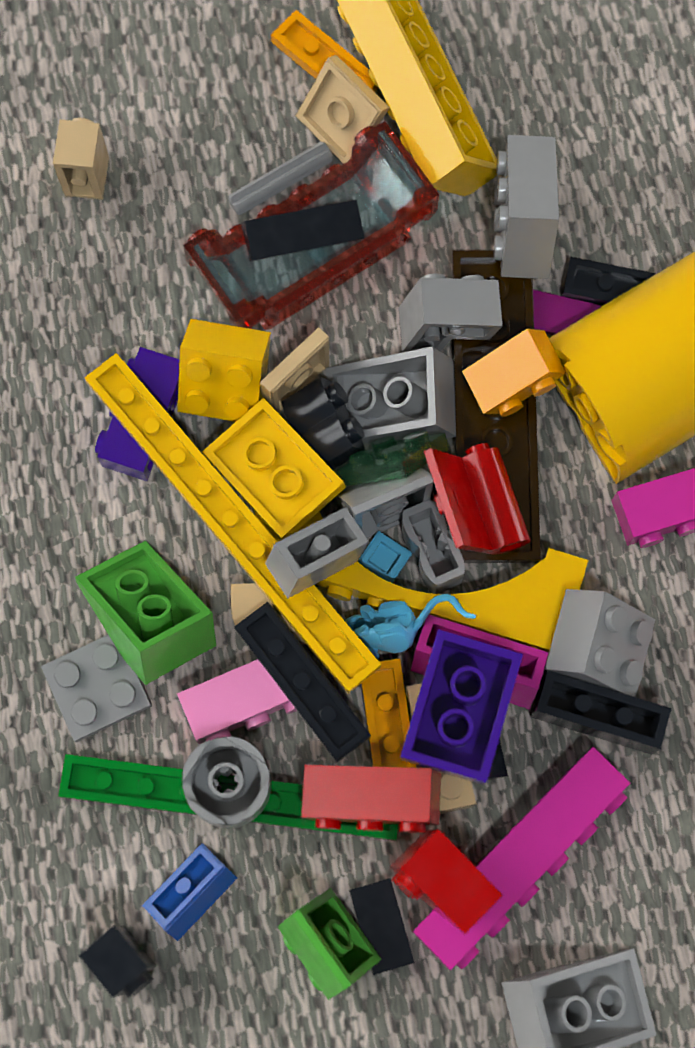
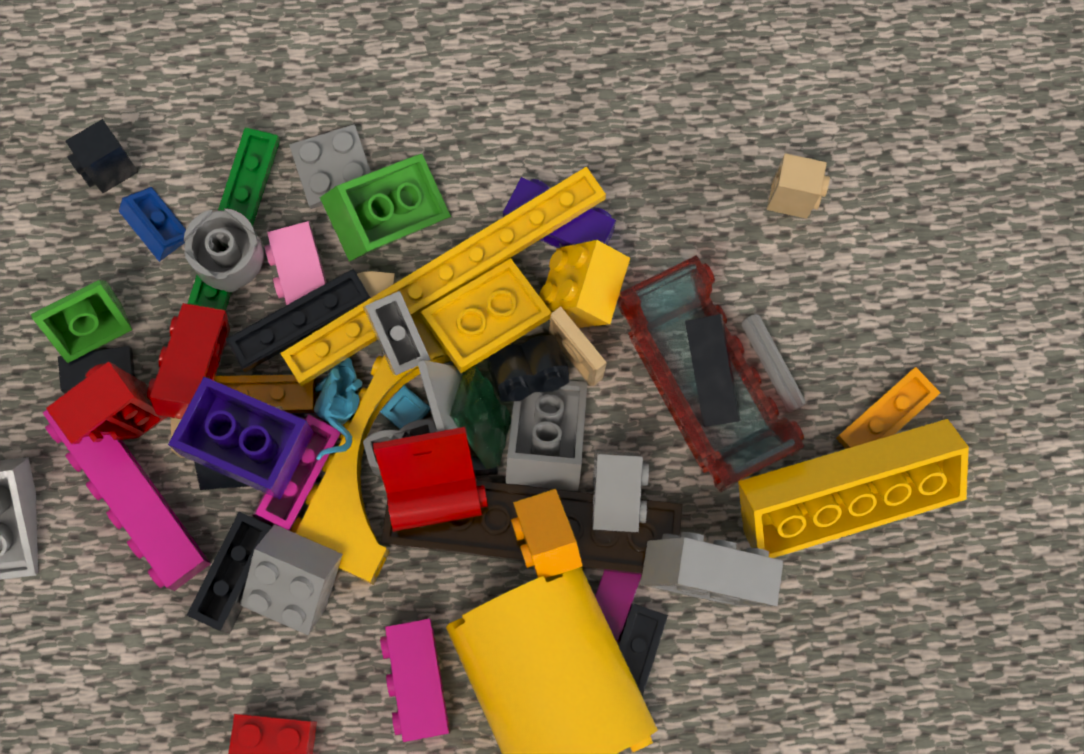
camera: 95 degrees right, 0 degrees up
(340, 107) = (832, 418): tan tile -> none

